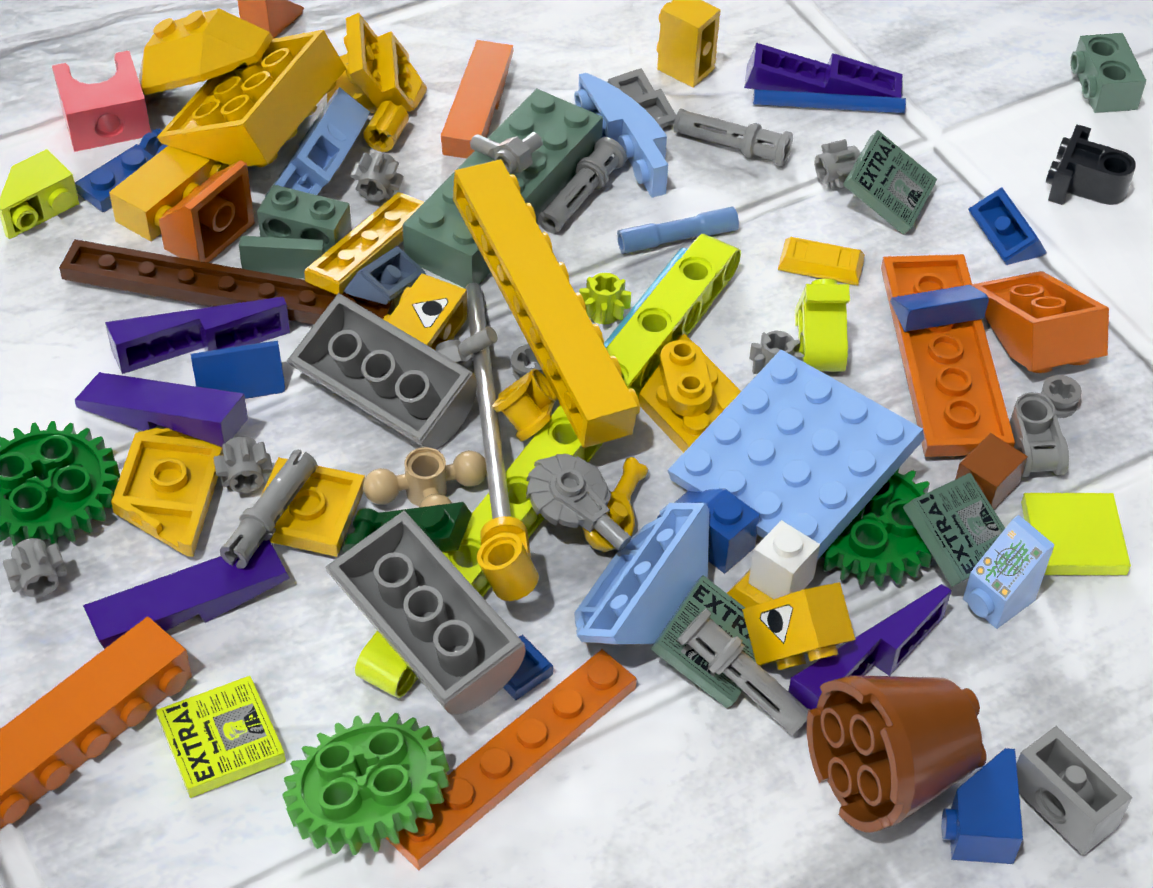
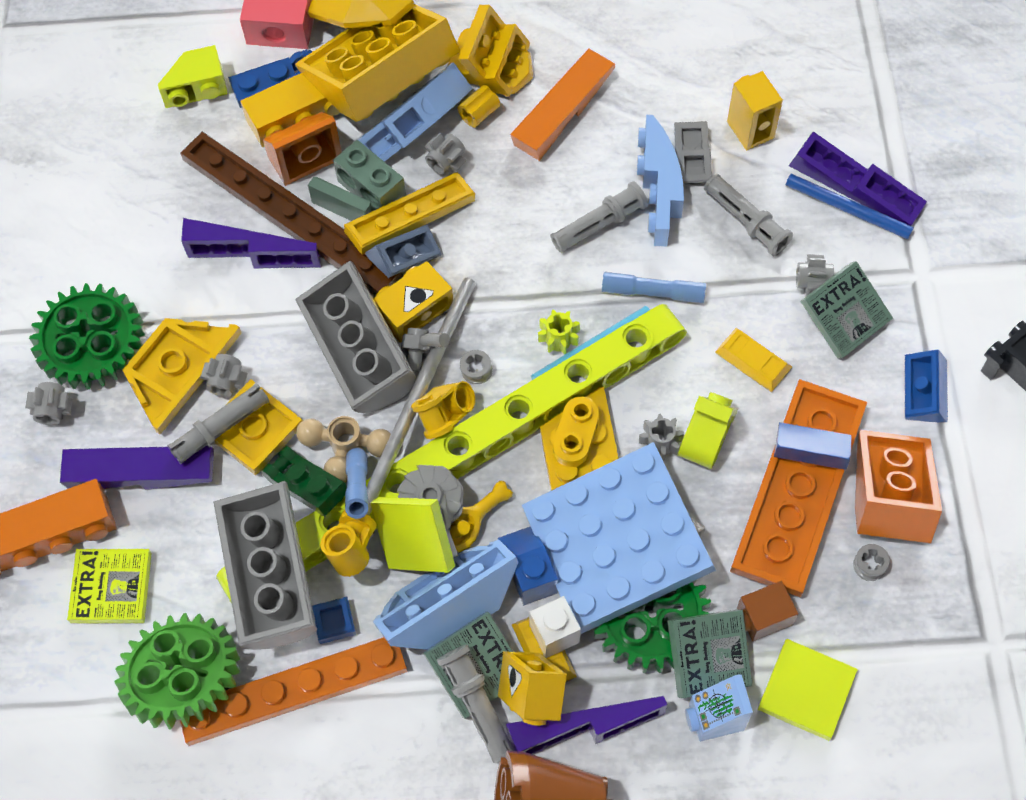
camera: 30 degrees right, 15 degrees up
(145, 403) = (195, 303): dark purple slope -> none
(241, 369) = (261, 293): blue slope -> none
(436, 231) = (534, 199): sand green brick -> none
(489, 500) = (356, 493): none -> medium blue piece
(513, 151) = (537, 182): light grey piece -> none
(545, 304) = (491, 329): yellow brick -> none
(573, 529) = (413, 534): none -> neon yellow tile
(1039, 435) = (822, 601): light grey piece -> none

